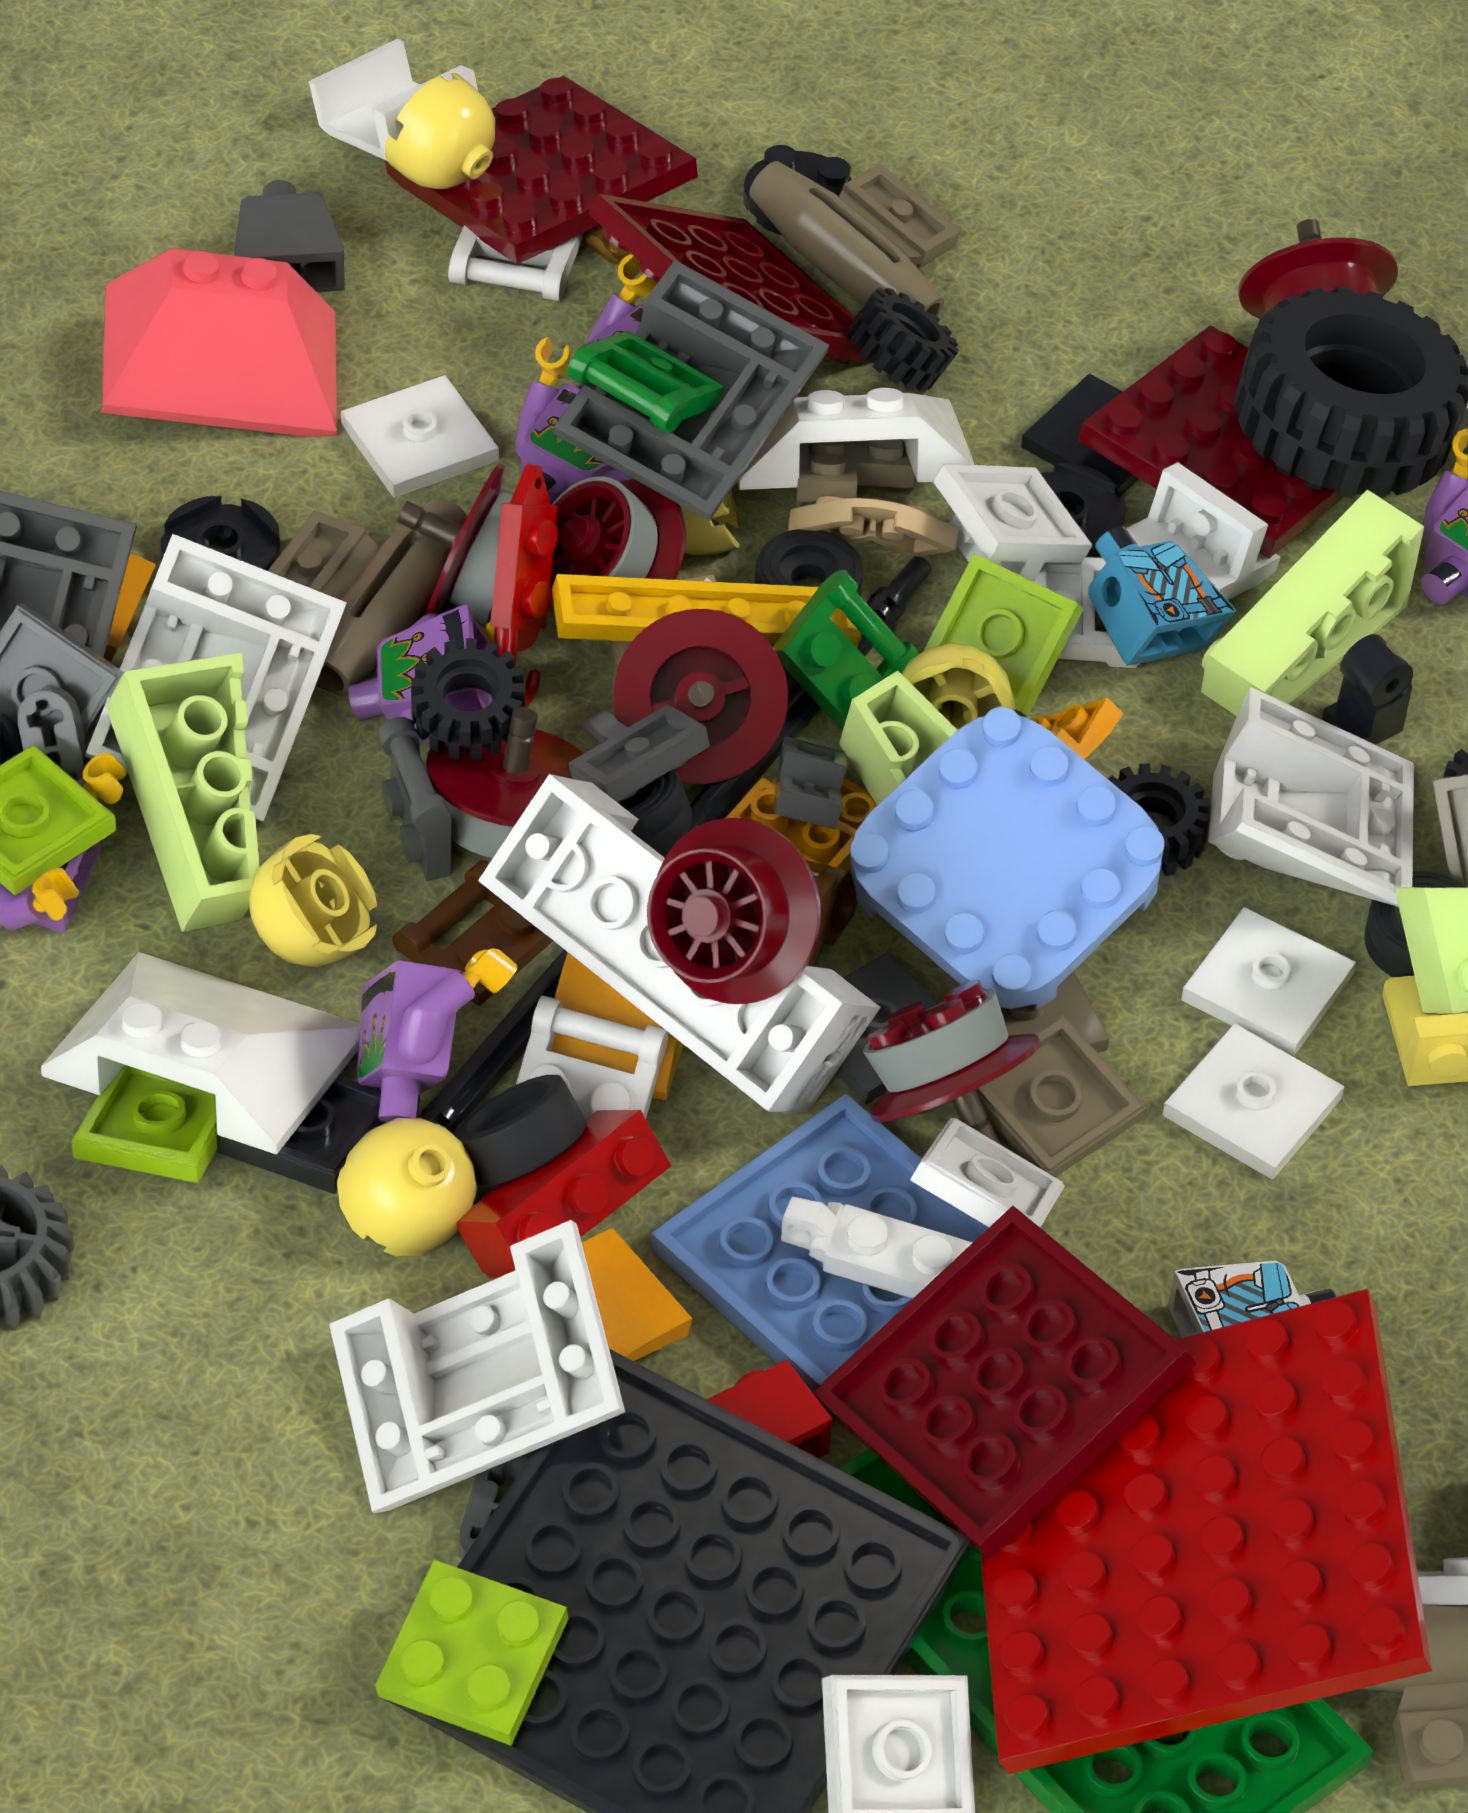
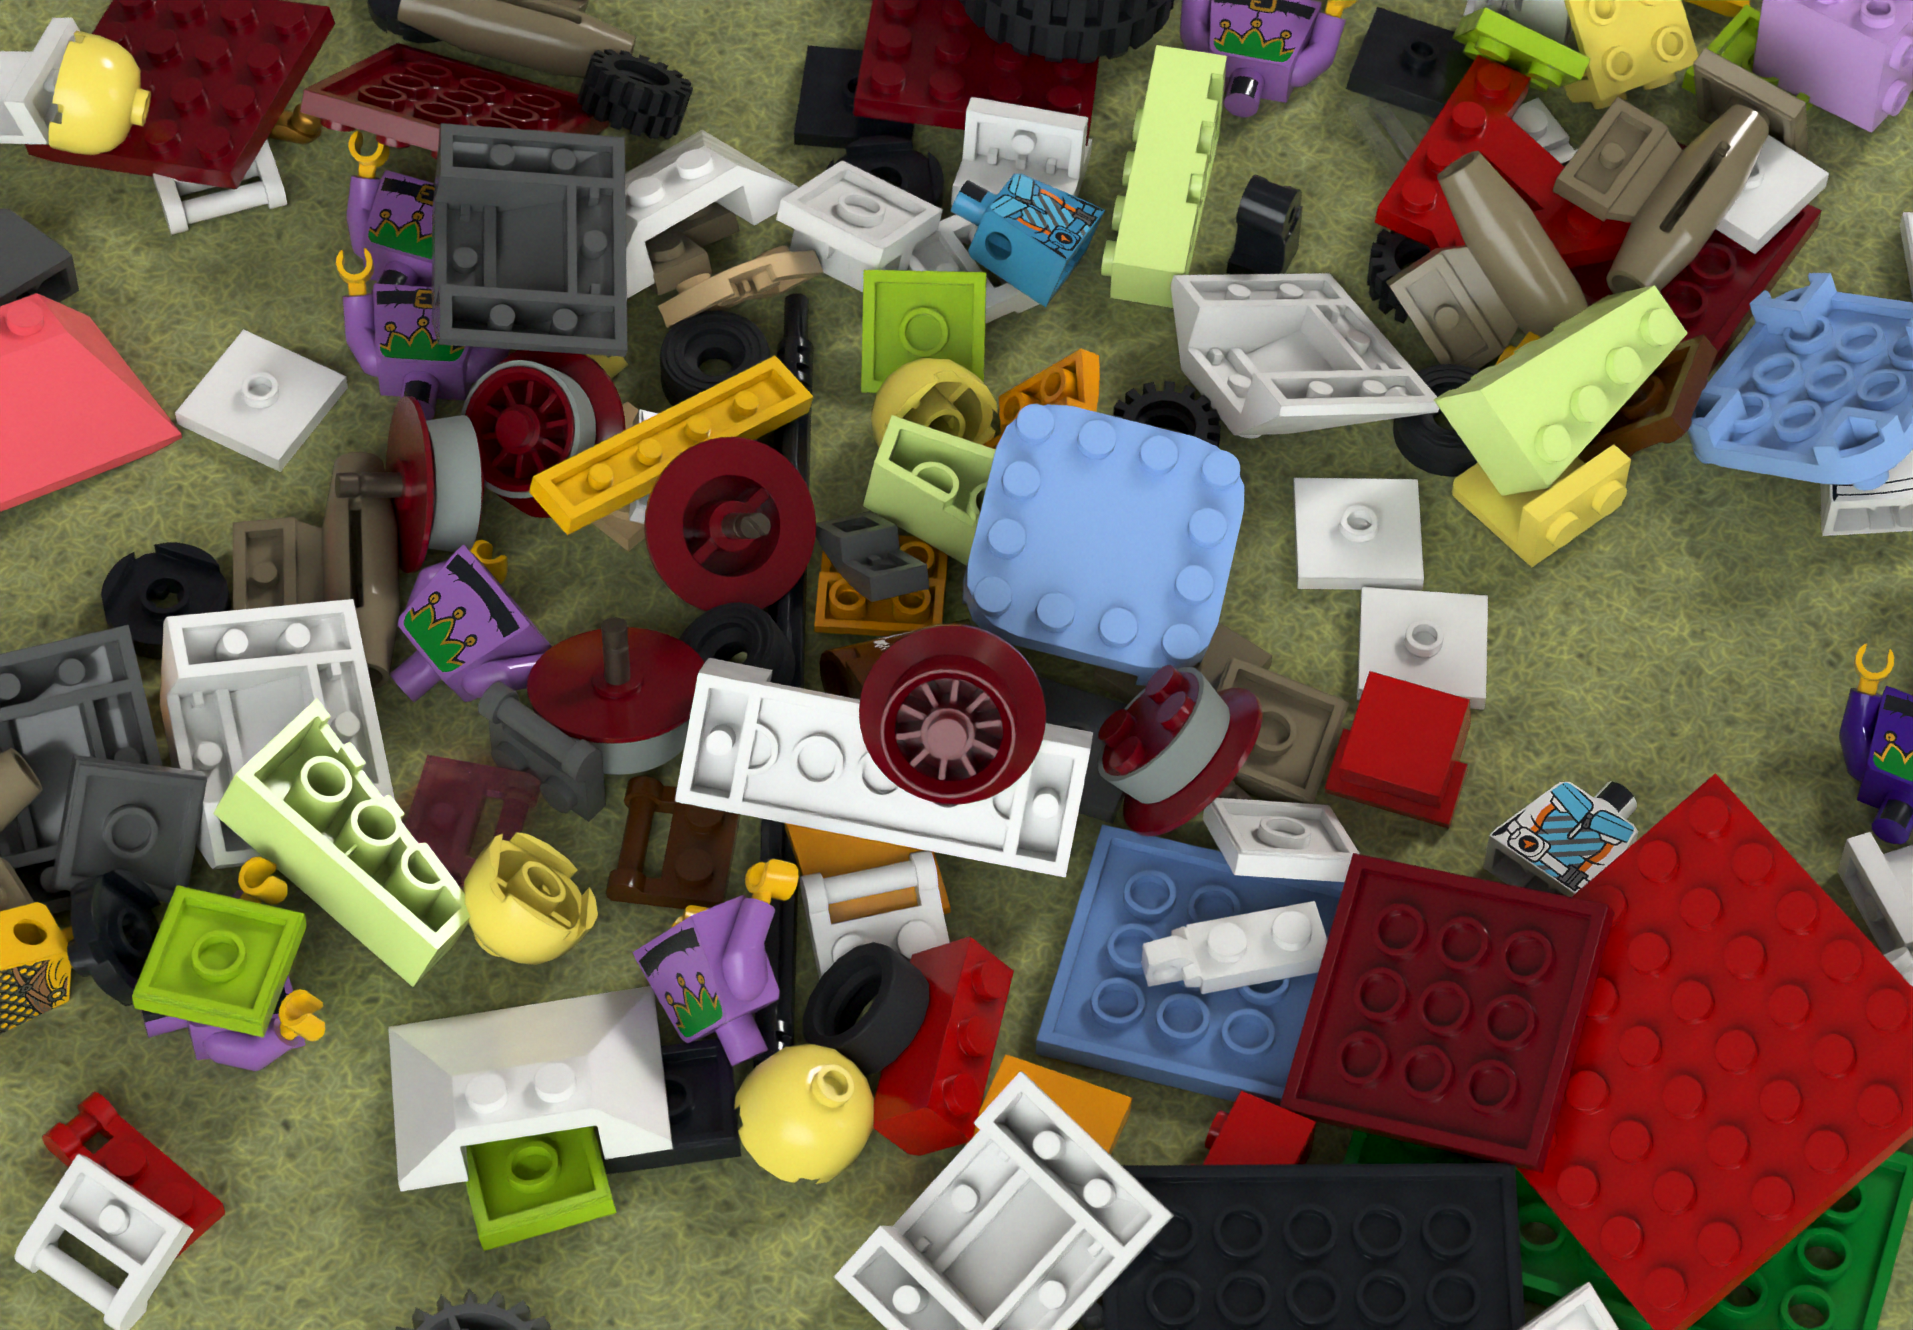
camera: 30 degrees left, 5 degrees up
(68, 732) = (190, 860): dark grey beam -> none
(324, 806) = (452, 802): none -> clear pink plate
(459, 670) = (548, 603): black tyre -> none
(524, 569) = (504, 504): red plate -> none
(639, 753) = (718, 611): dark grey plate -> none
(645, 379) = (488, 250): green plate -> none
(826, 659) = (810, 438): green plate -> none
(1159, 1167) = (1403, 751): none -> red plate

